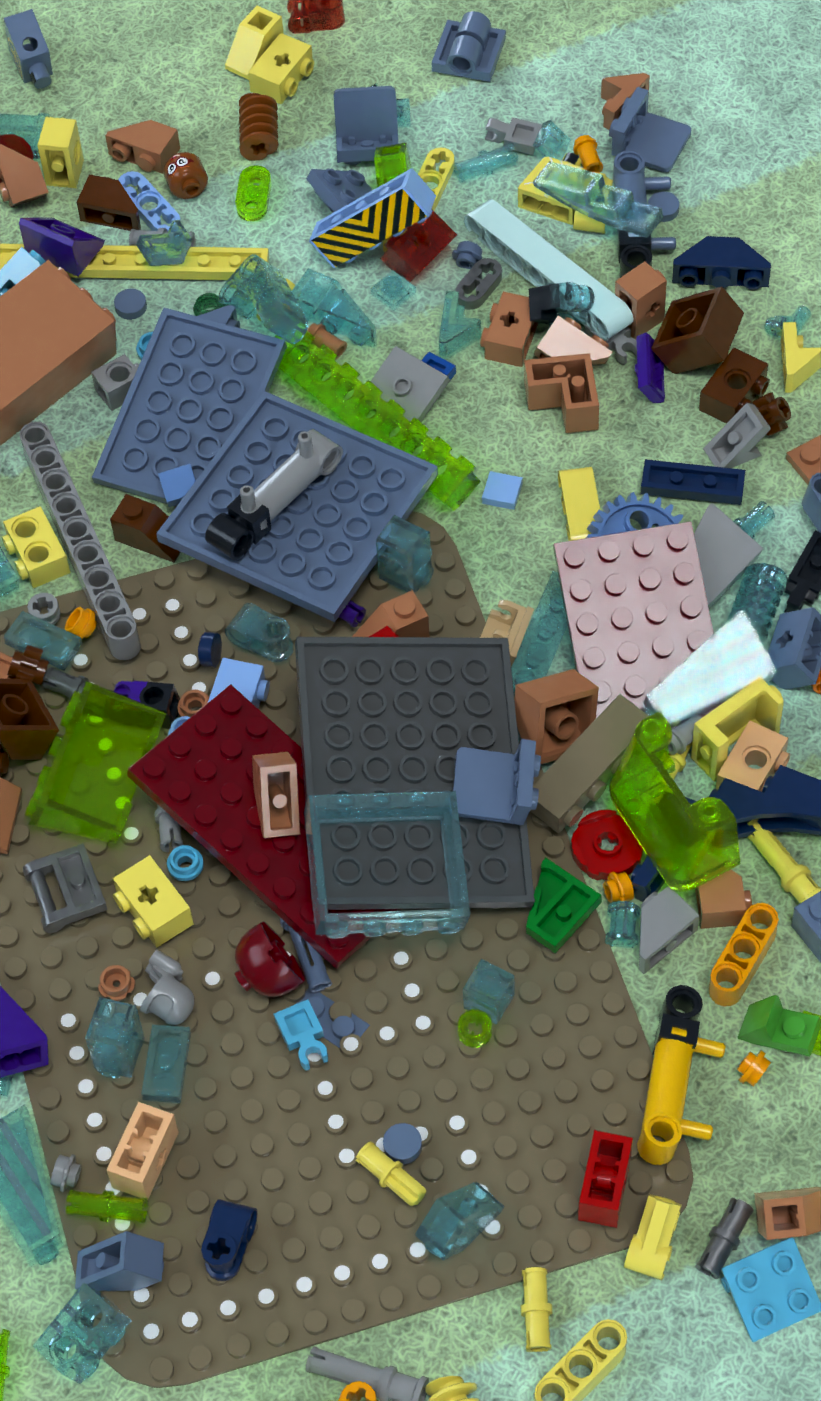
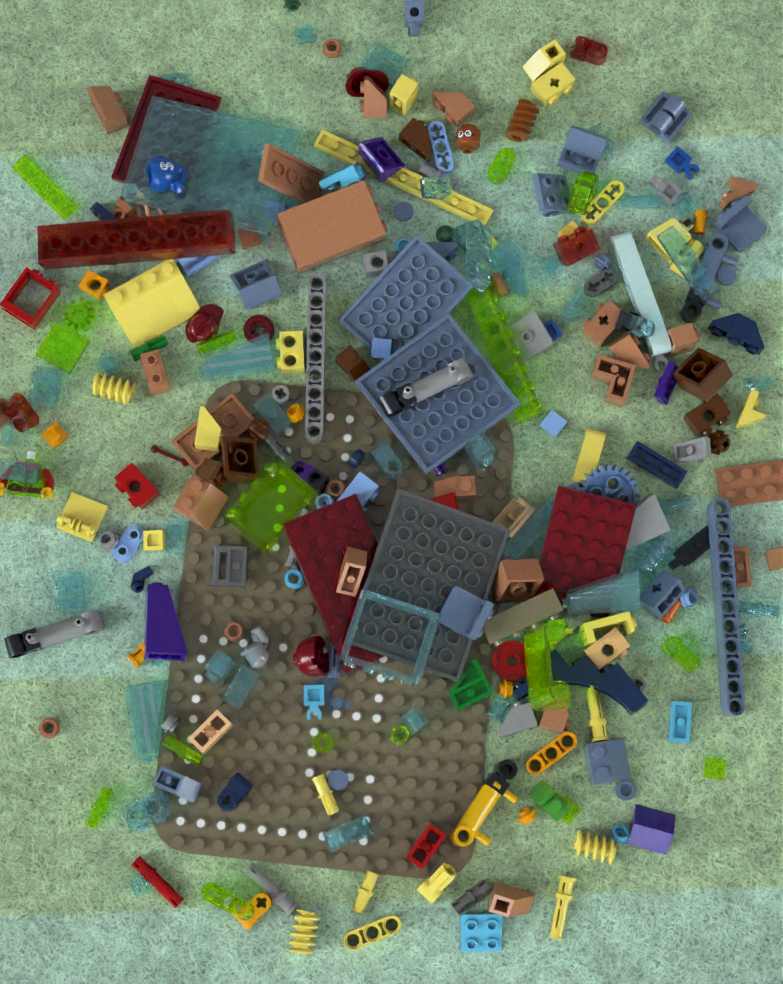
camera: 15 degrees right, 20 degrees up
(168, 911) = (270, 583): light yellow brick -> none
(352, 1103) = (320, 749): none -> clear neon green plate
(373, 218) = (555, 225): brick -> none
(520, 93) = (679, 161): none -> blue plate

